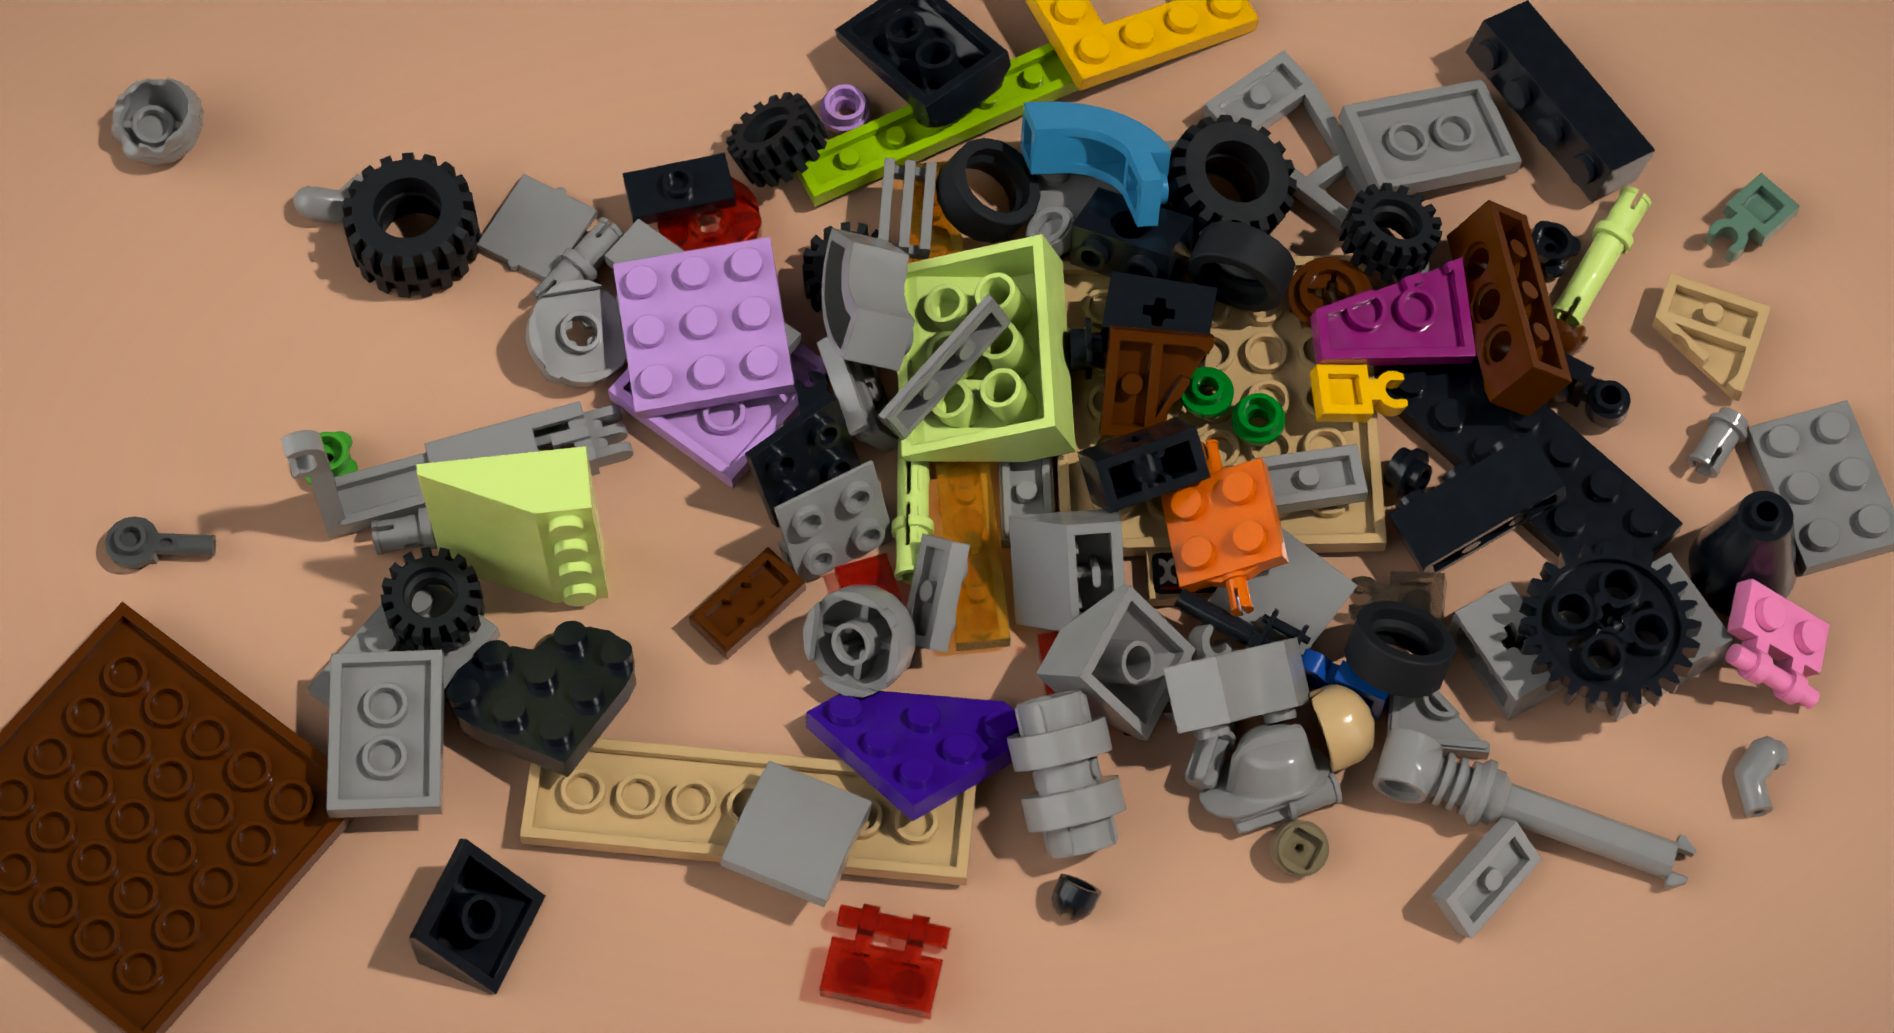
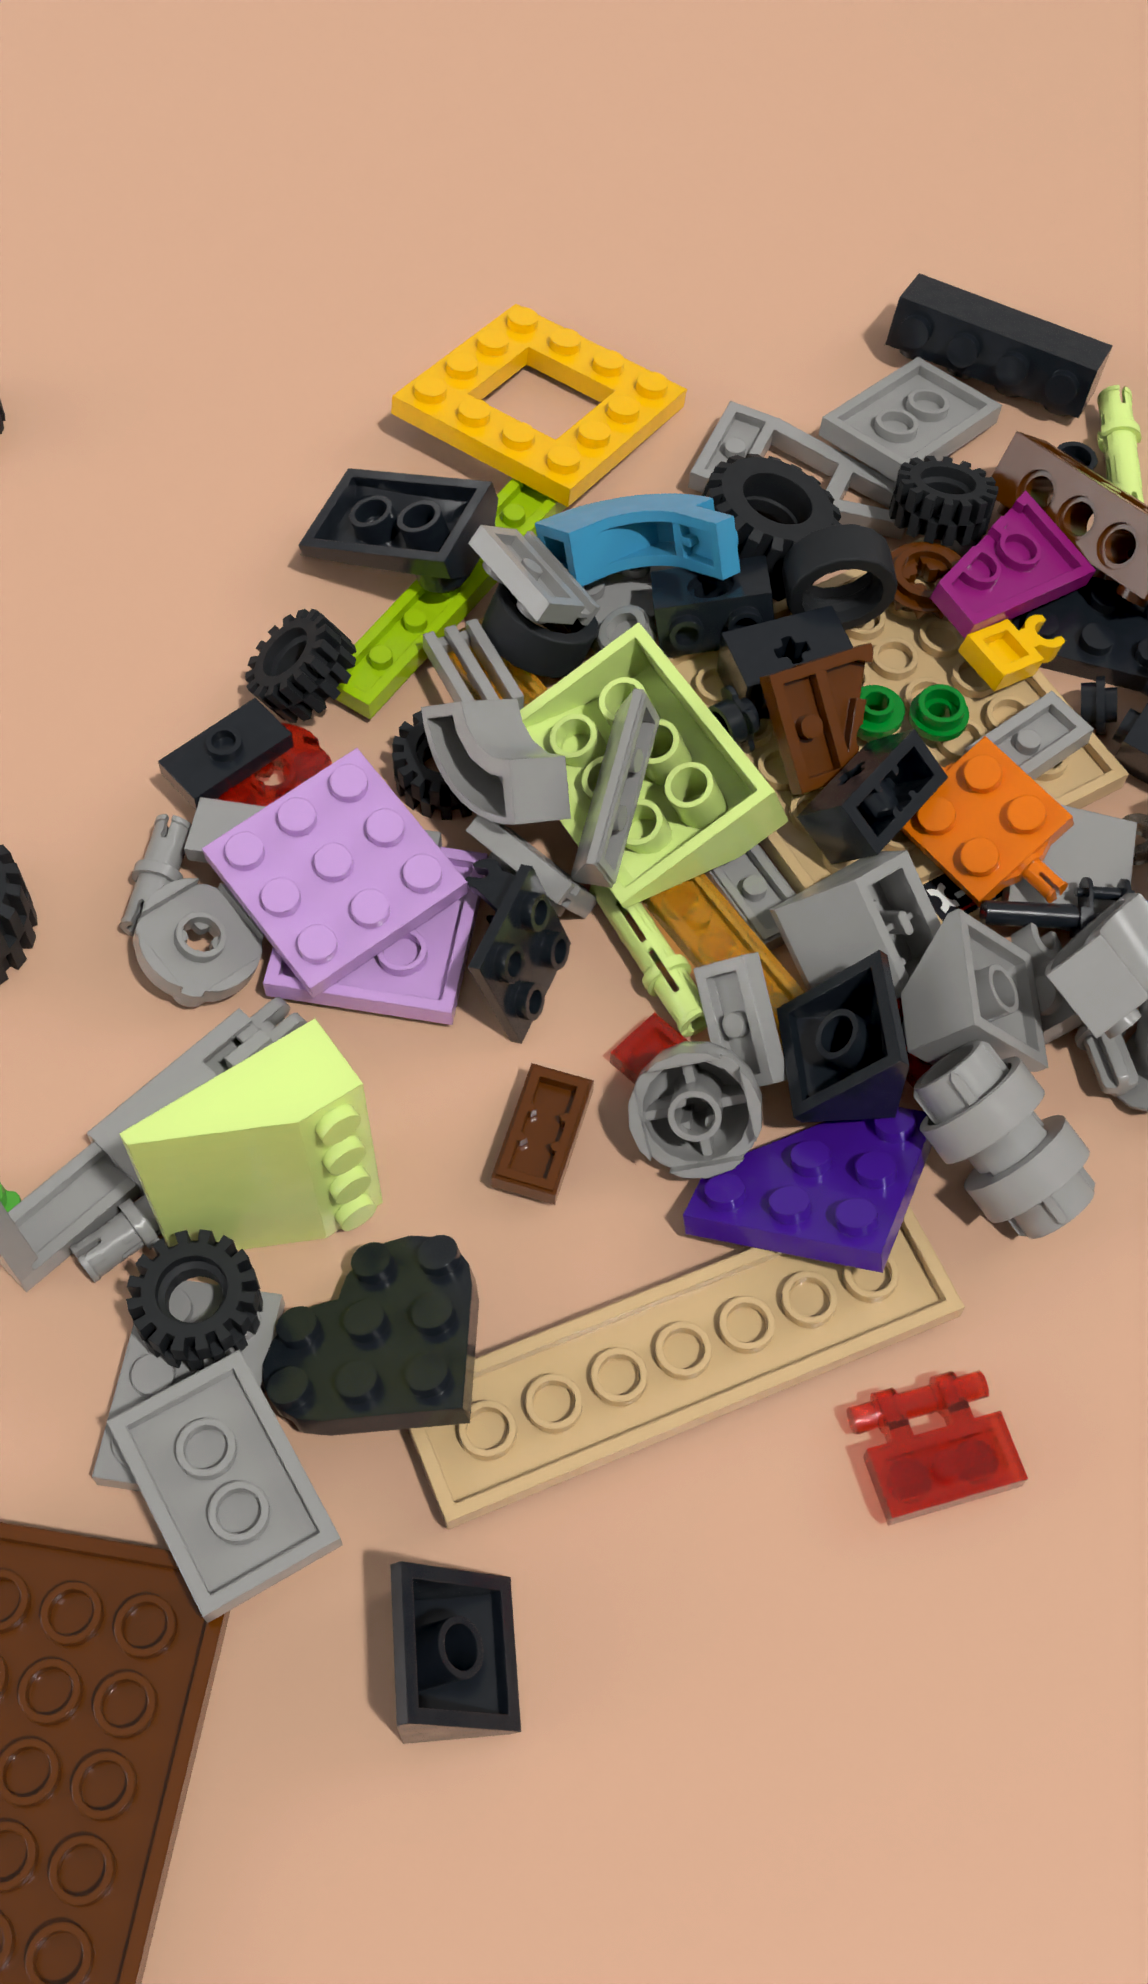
camera: 30 degrees left, 5 degrees down
(536, 227) = (87, 864): light grey piece -> none
(796, 833) = (764, 1354): light grey slope -> none
(834, 522) = (590, 1003): light grey hinge -> none
(844, 97) = (349, 613): lavender plate -> none
(993, 151) = (533, 576): none -> light grey plate
(994, 648) = (845, 1046): none -> black slope
(1075, 894) = (1080, 1270): black hinge -> none

